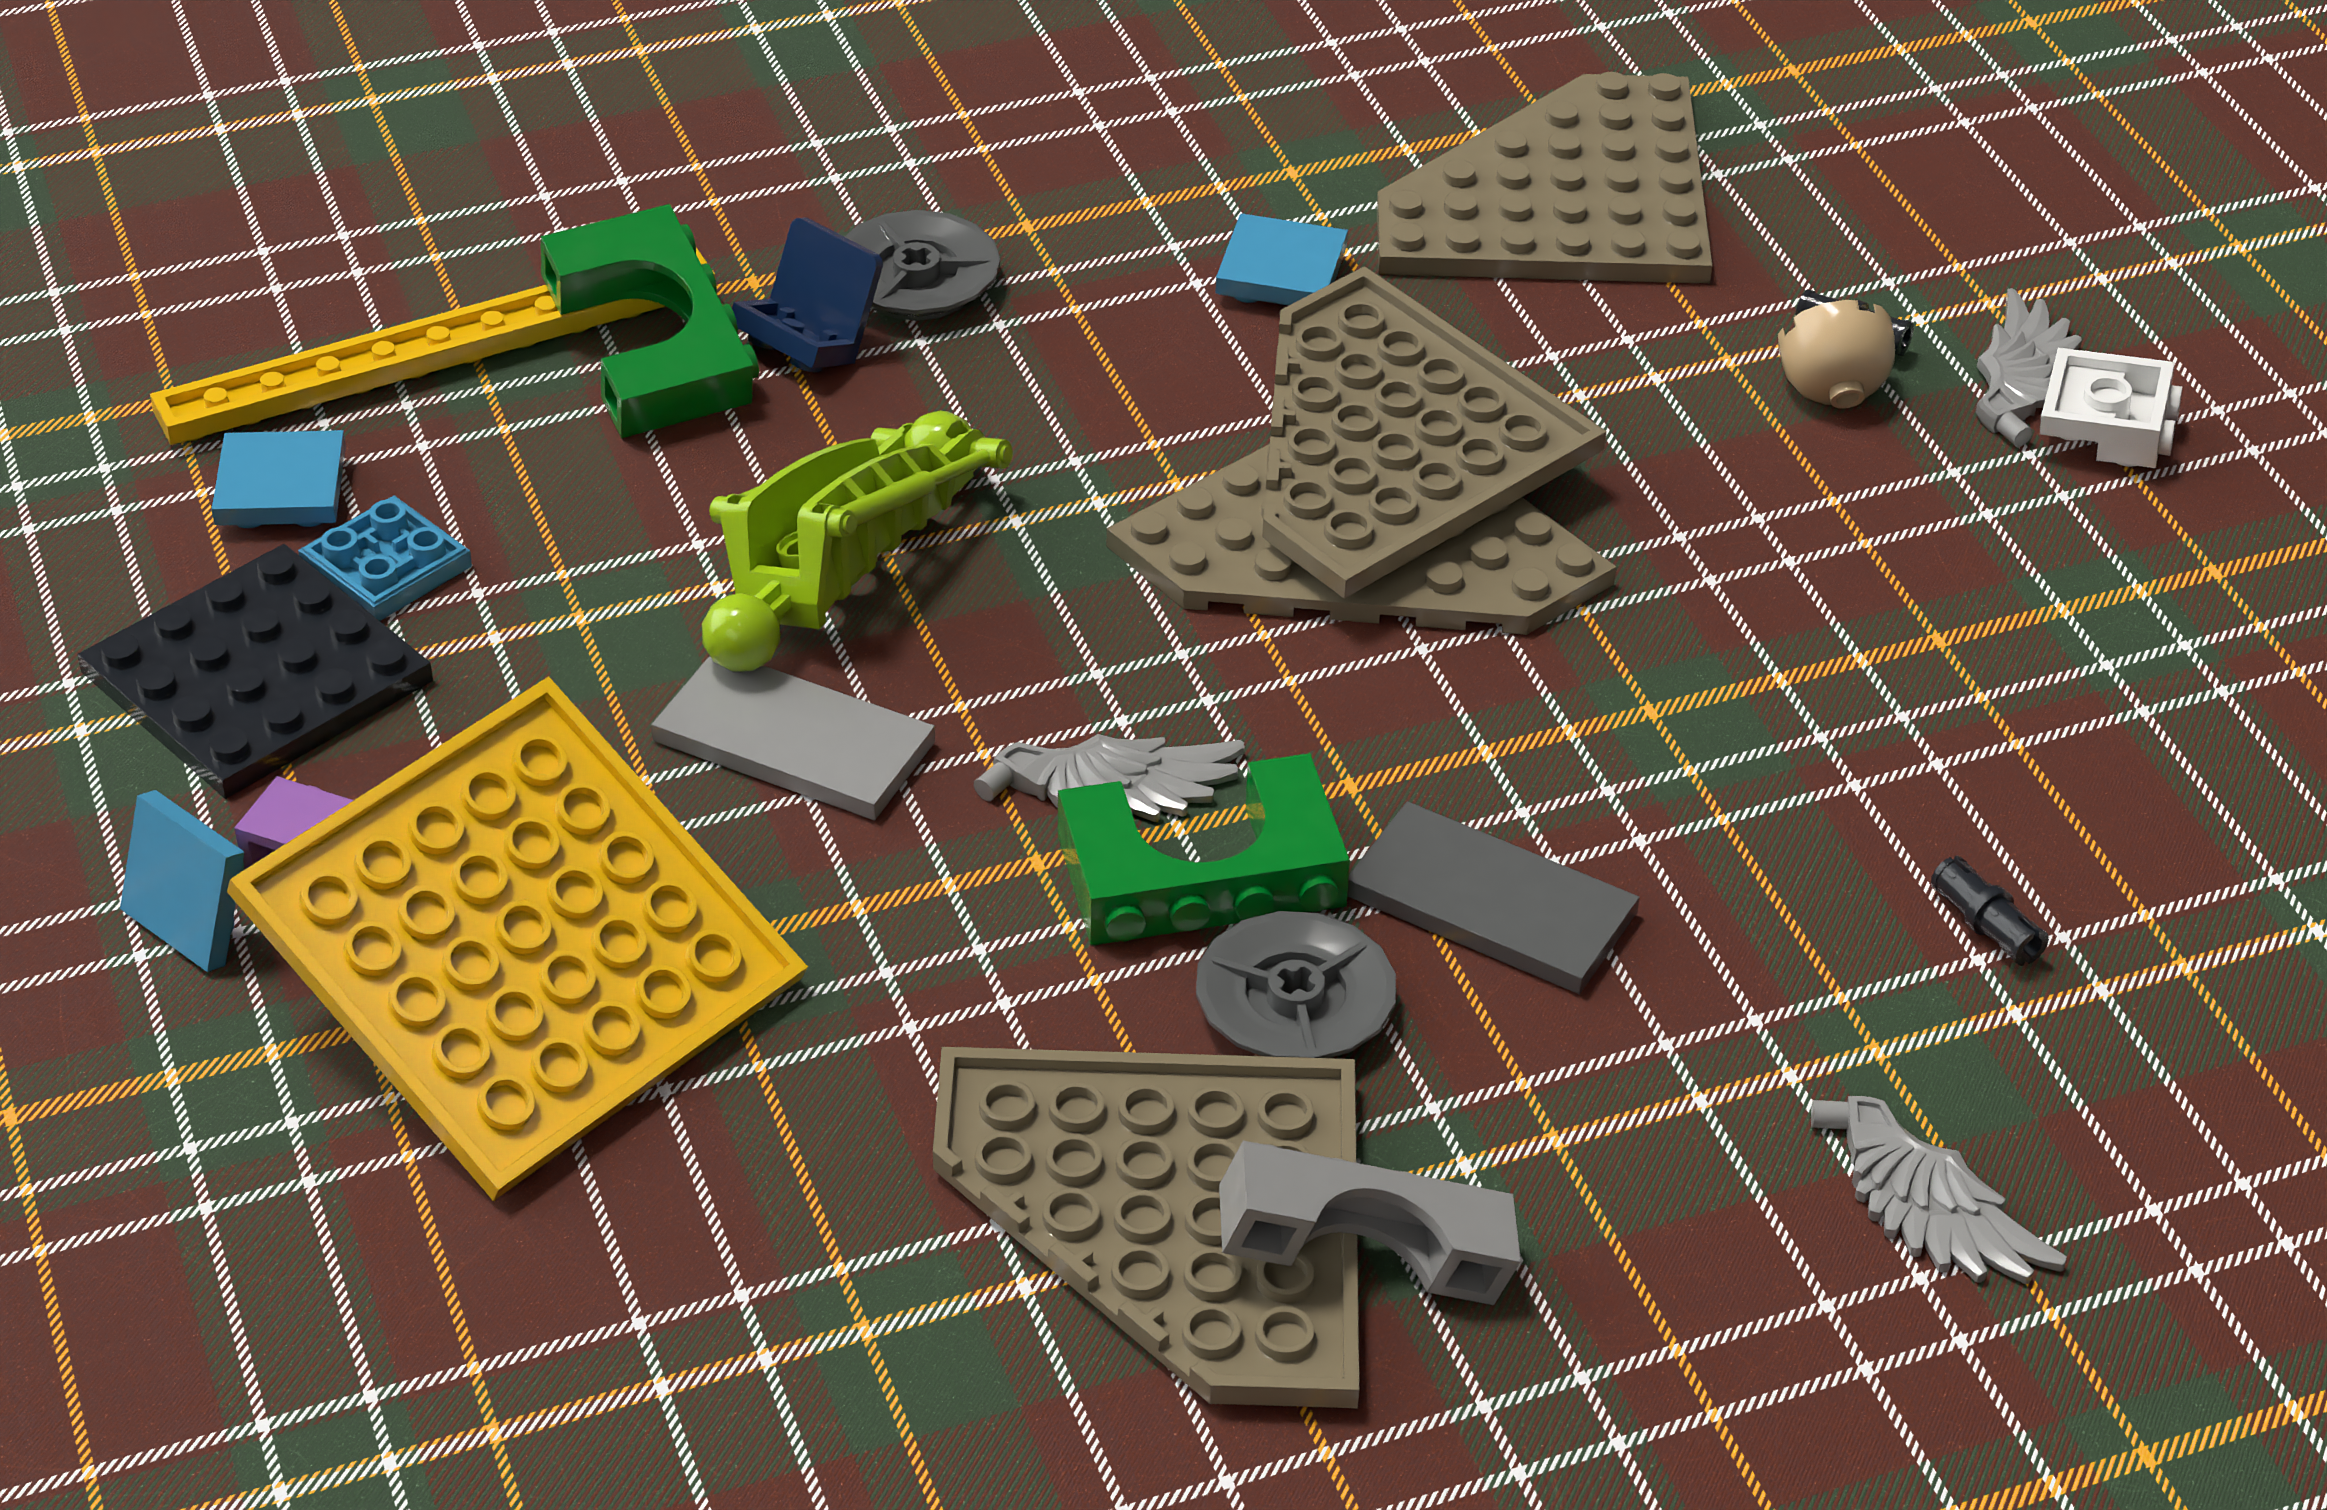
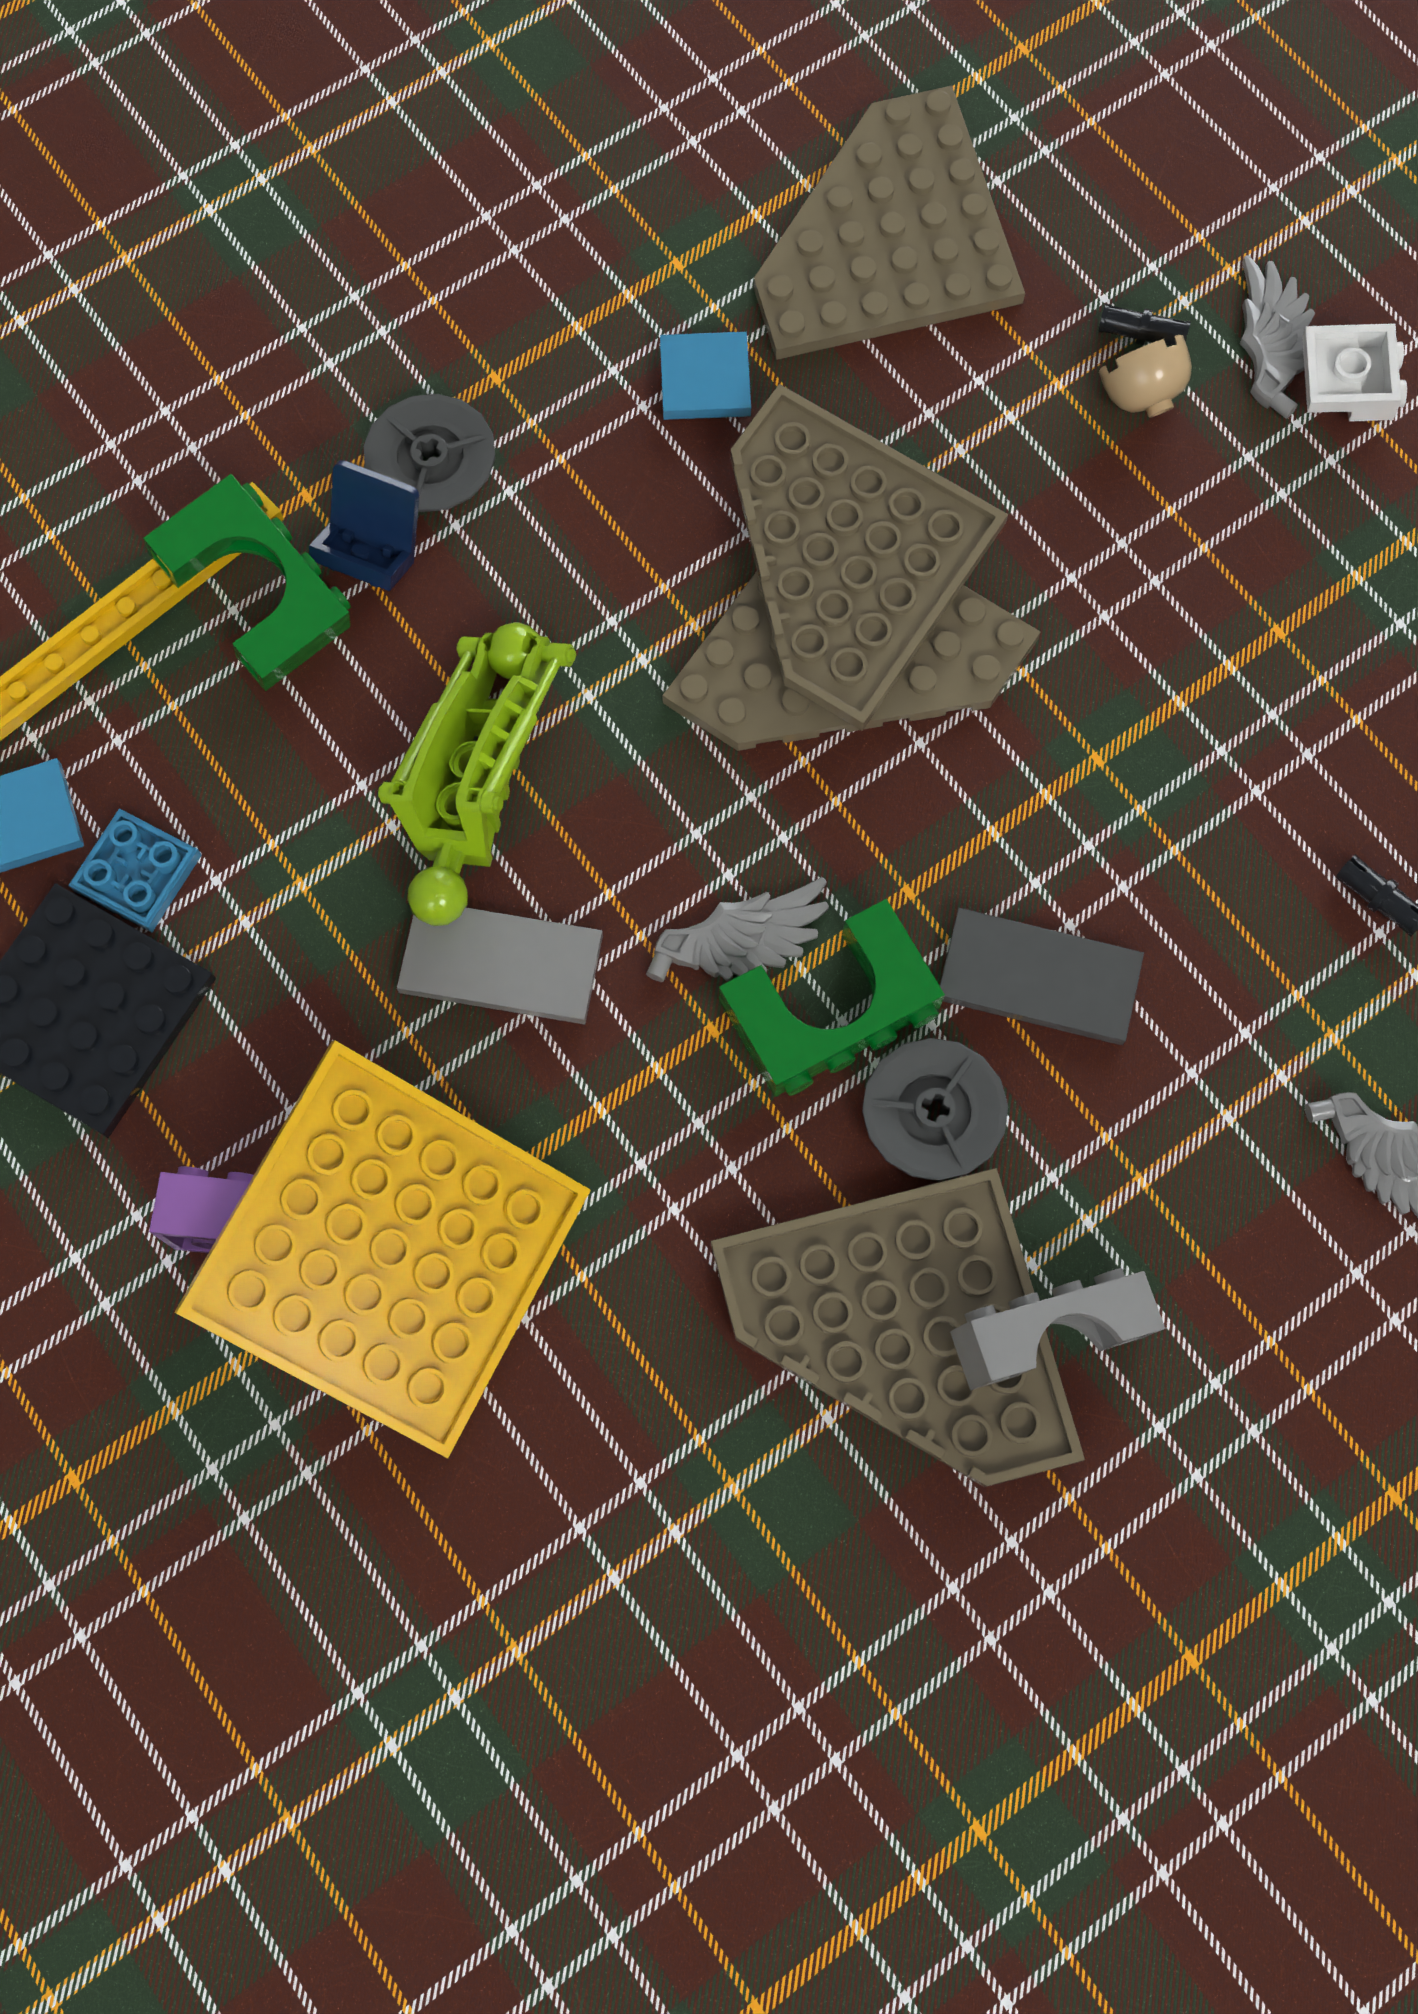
camera: 15 degrees left, 30 degrees up
(181, 880) = (118, 1256): dark azure tile -> none

